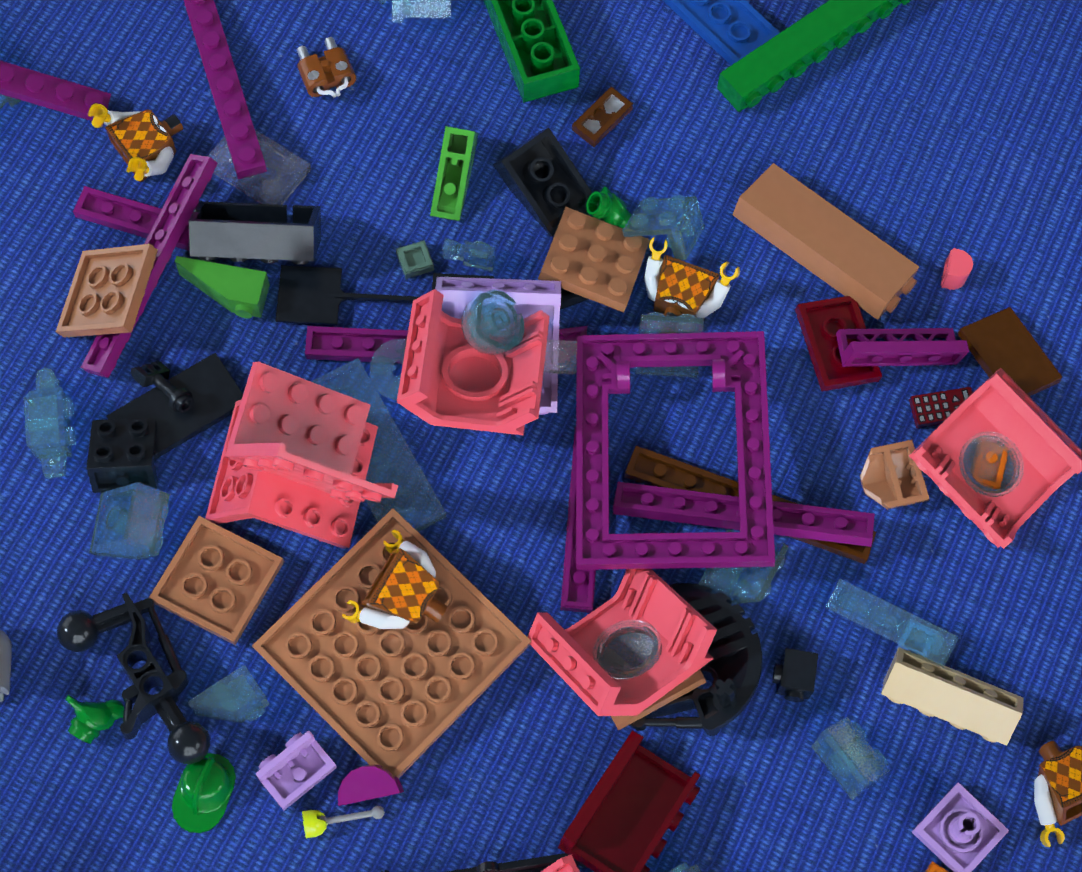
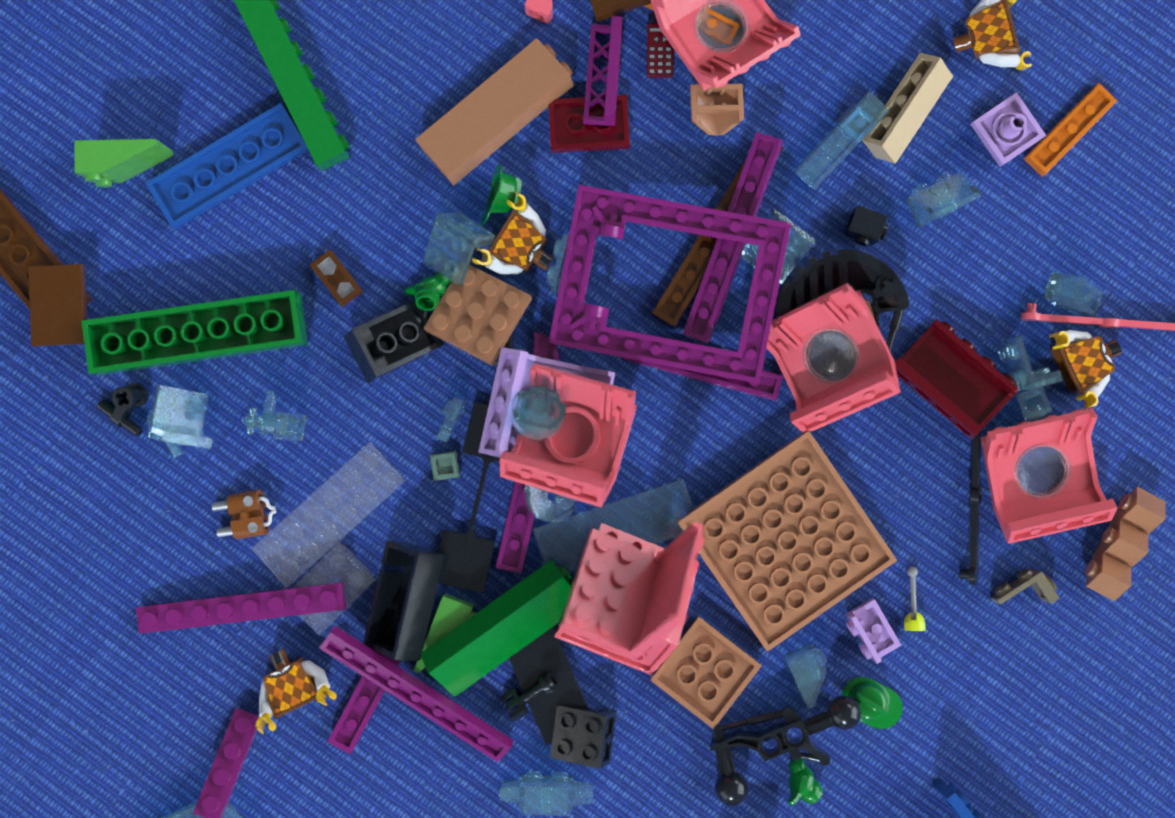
camera: 75 degrees left, 20 degrees up
(107, 291) = (436, 733): nougat plate -> none
(130, 522) = (645, 736): clear light blue slope -> none
(227, 324) = (500, 629): none -> green brick
(340, 150) = (328, 514): none -> clear plate
(366, 784) = (894, 576): magenta tile -> none
(401, 590) = (754, 527): torso -> none
(431, 80) = (281, 425): none -> clear light blue piece
(454, 173) = (369, 418): bright green slope -> none
(561, 357) = (565, 359): clear plate -> none
(745, 259) = (501, 190): none -> green piece

